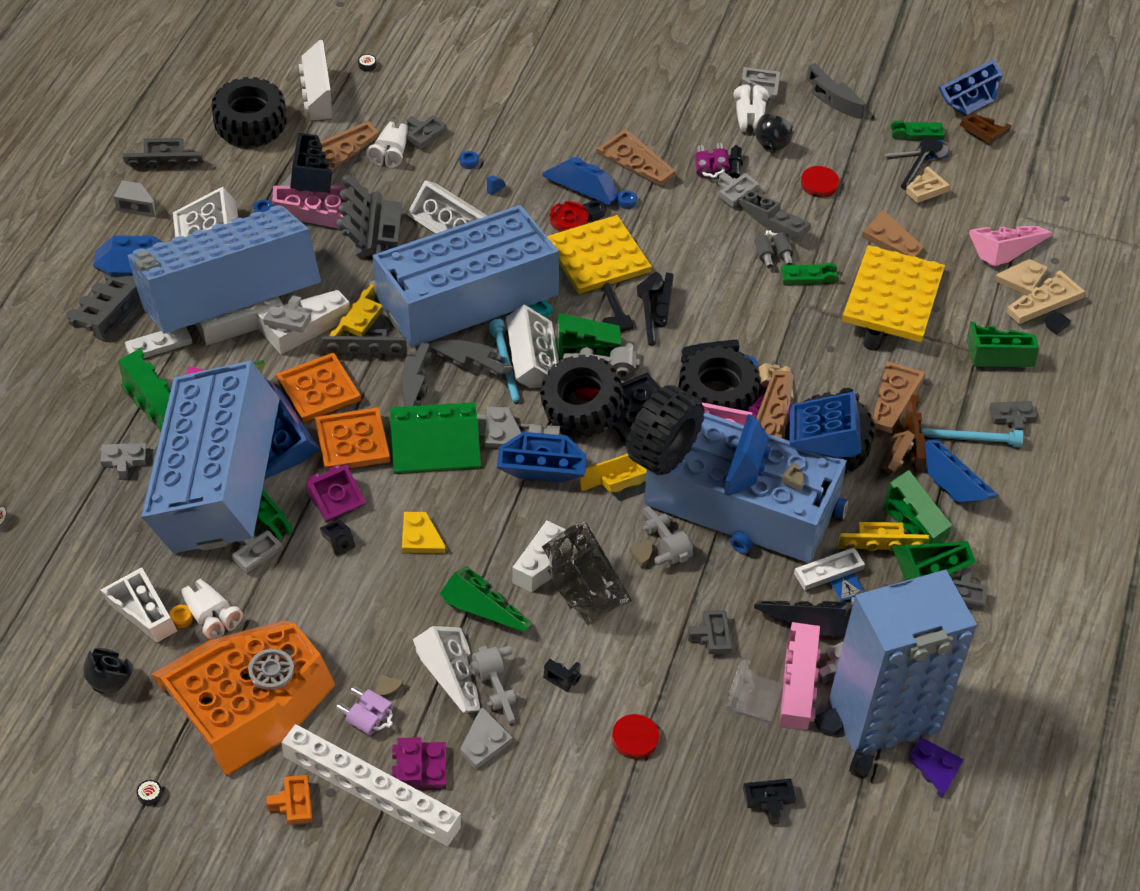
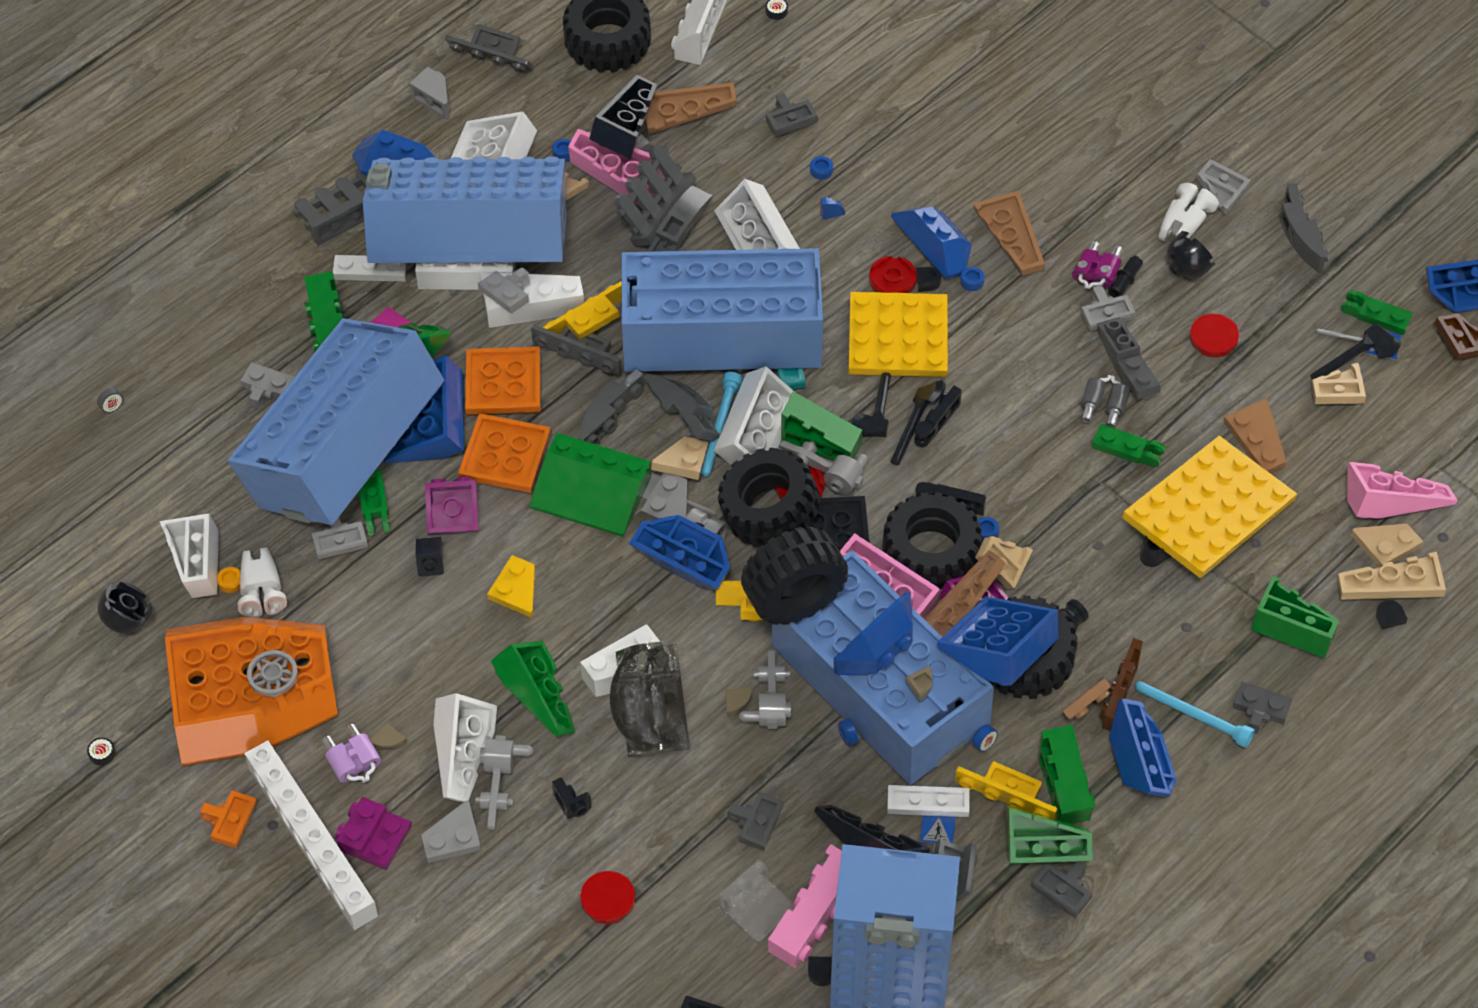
camera: 30 degrees right, 5 degrees up
(389, 146) = (740, 120): white piece -> none
(496, 393) = (682, 458): none -> tan wing
(894, 395) = (1145, 620): medium nougat wing -> none

